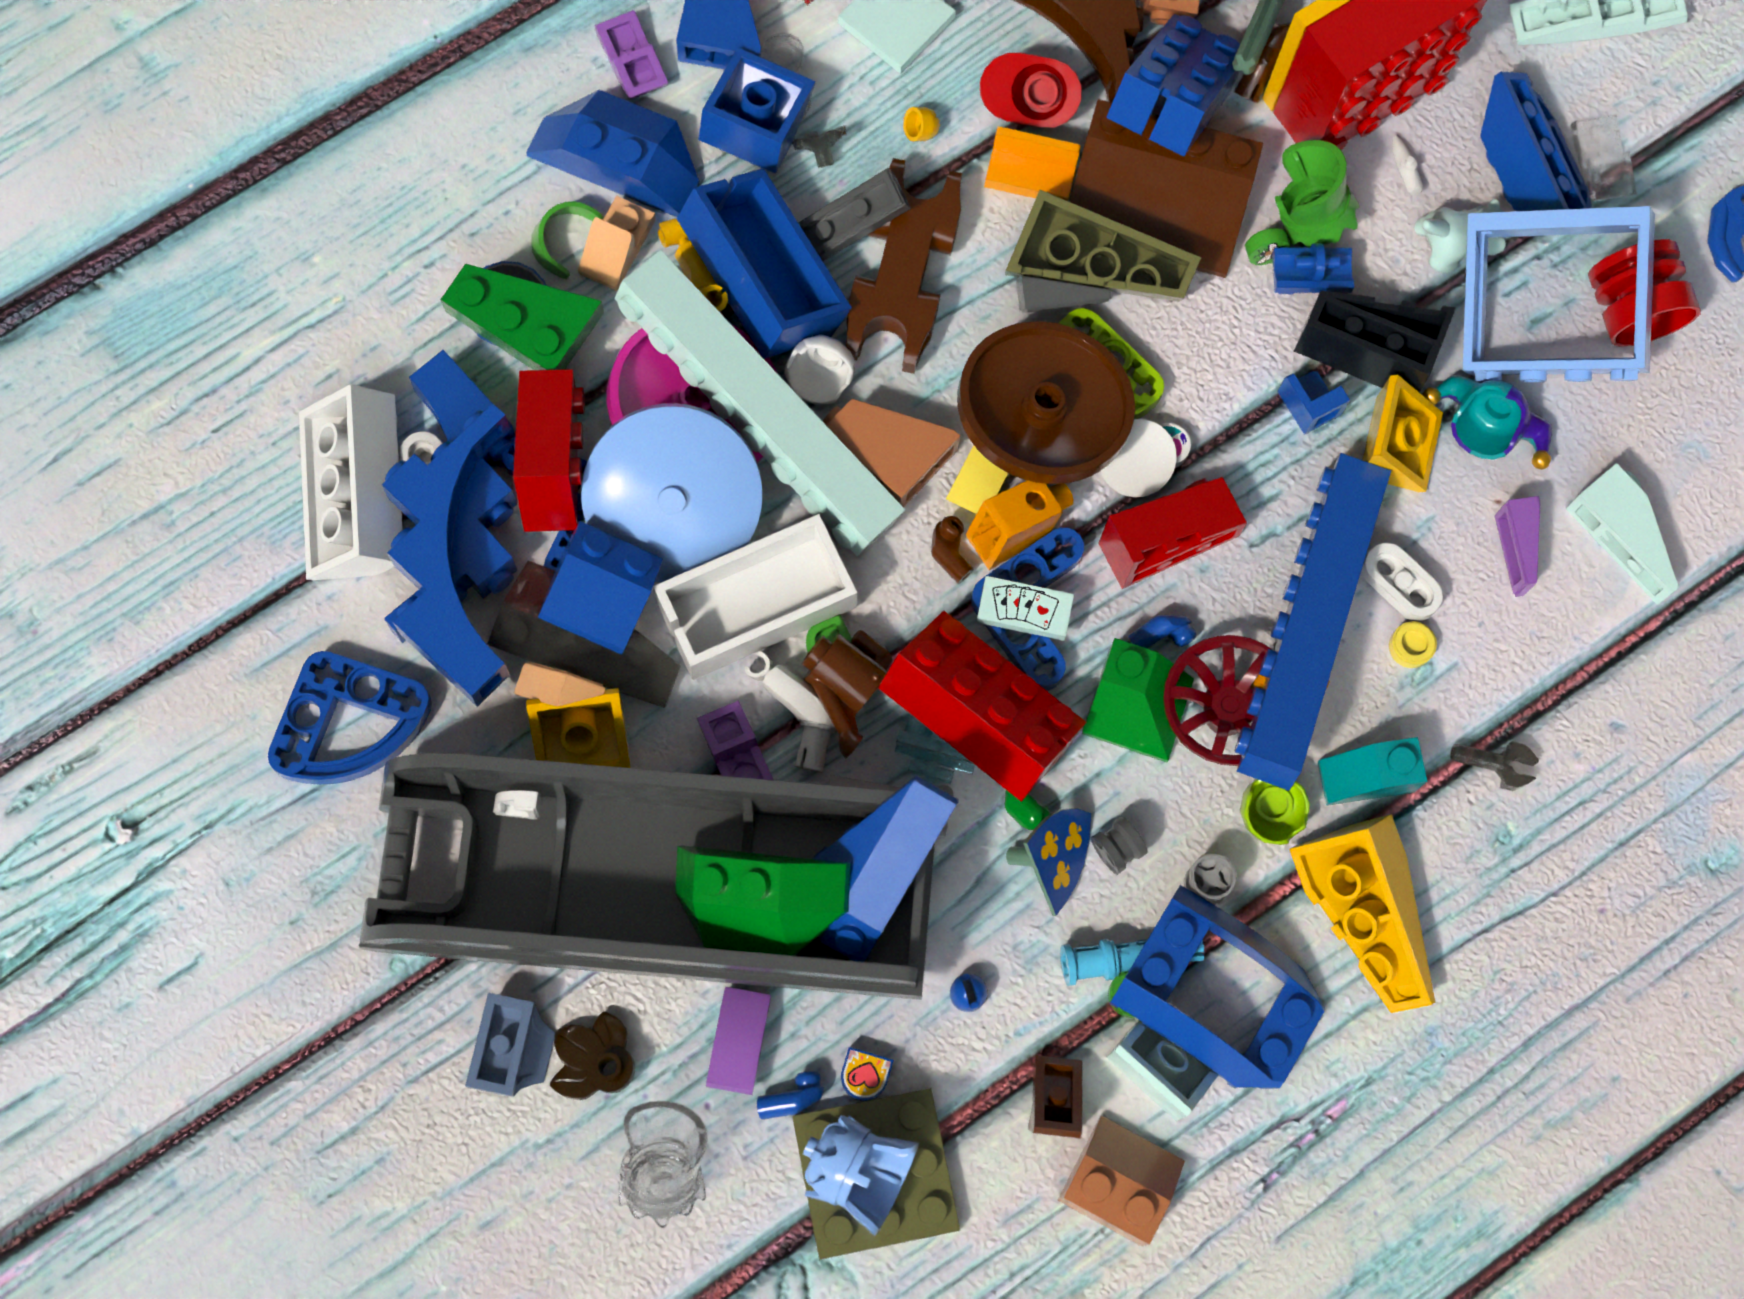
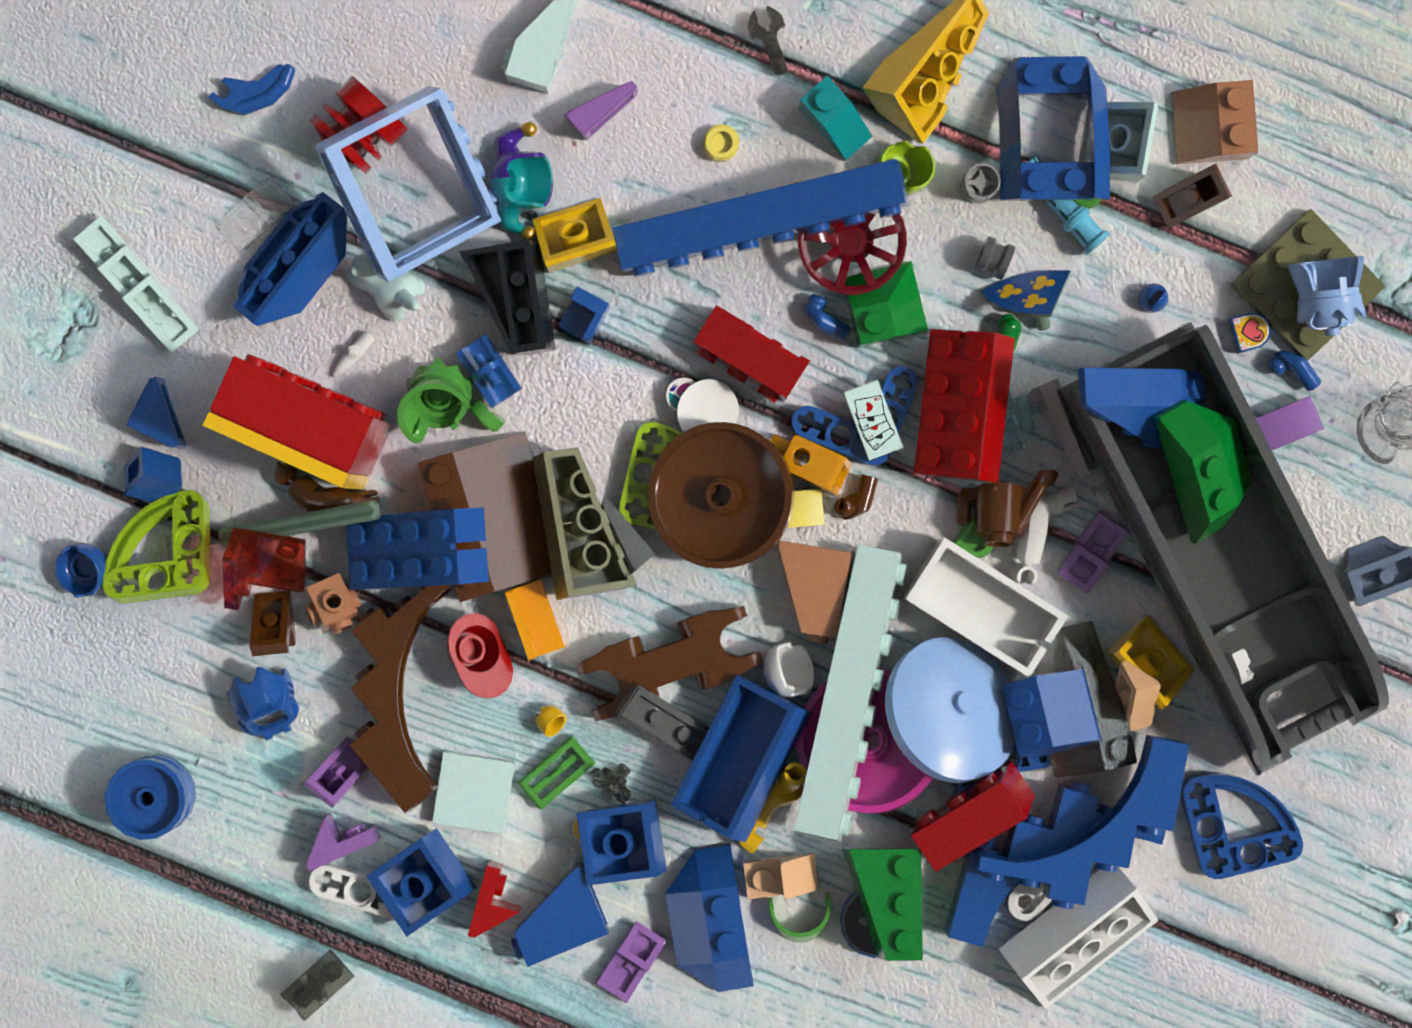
camera: 115 degrees left, 15 degrees up
(586, 1054) = (1351, 518): dark brown plate -> none
(868, 133) = (579, 752): none -> bright green tile
(1404, 579) = (682, 176): white plate -> none

